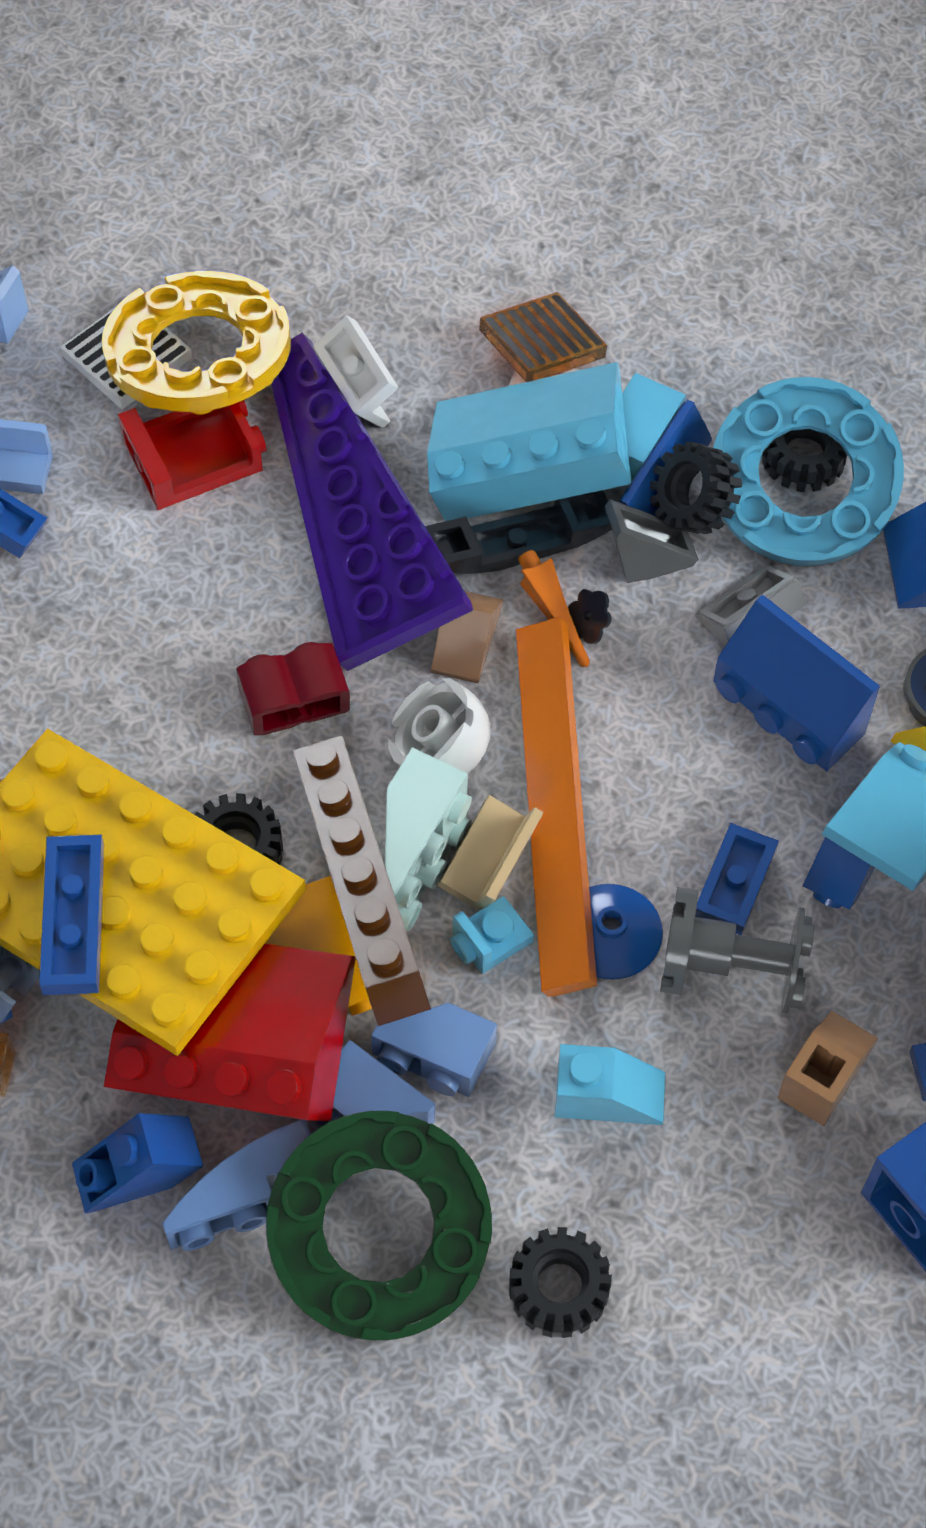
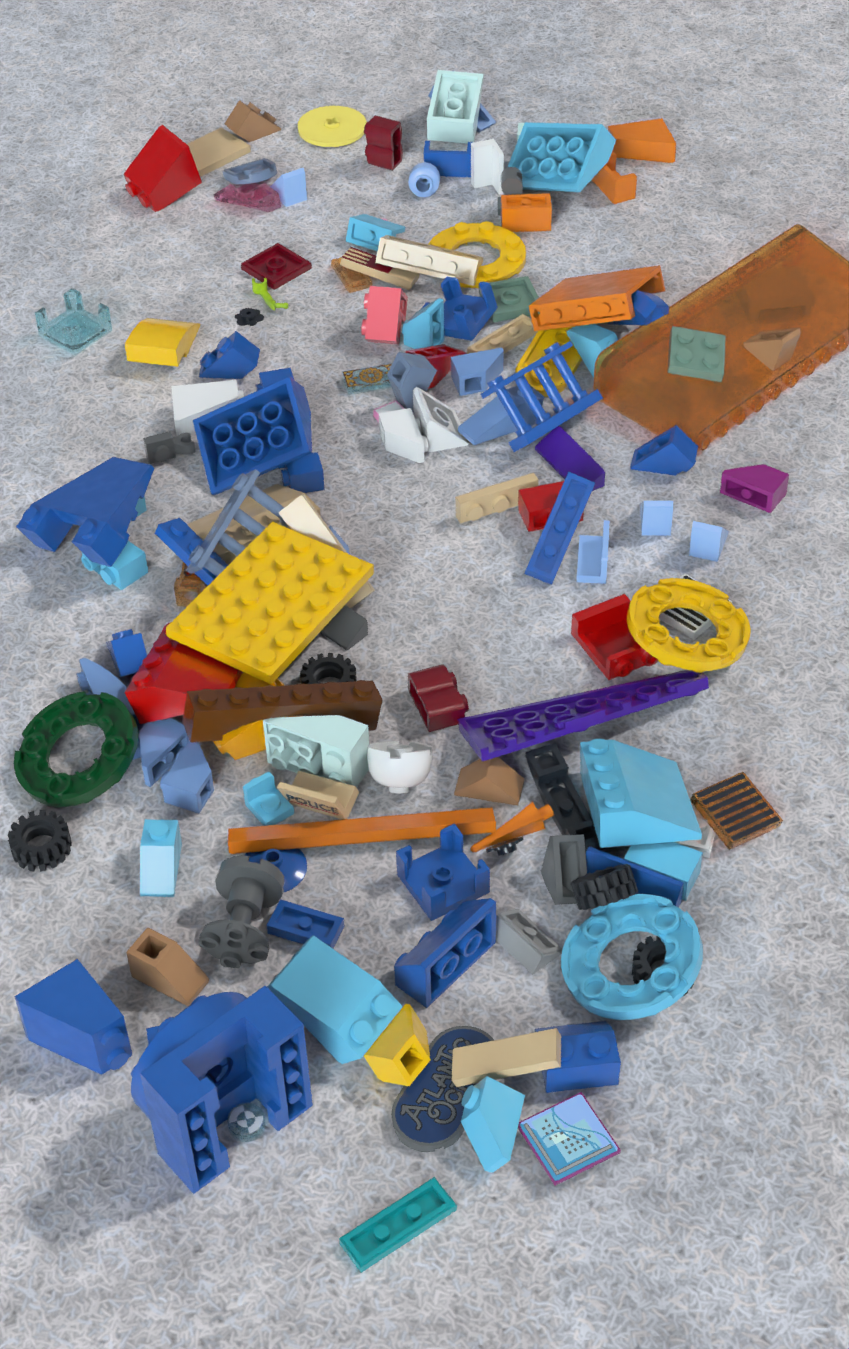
camera: 90 degrees right, 15 degrees down
(72, 915) = (240, 571): blue plate -> none
(357, 370) = (678, 709): white panel -> none
(648, 695) = (443, 876): none -> blue panel

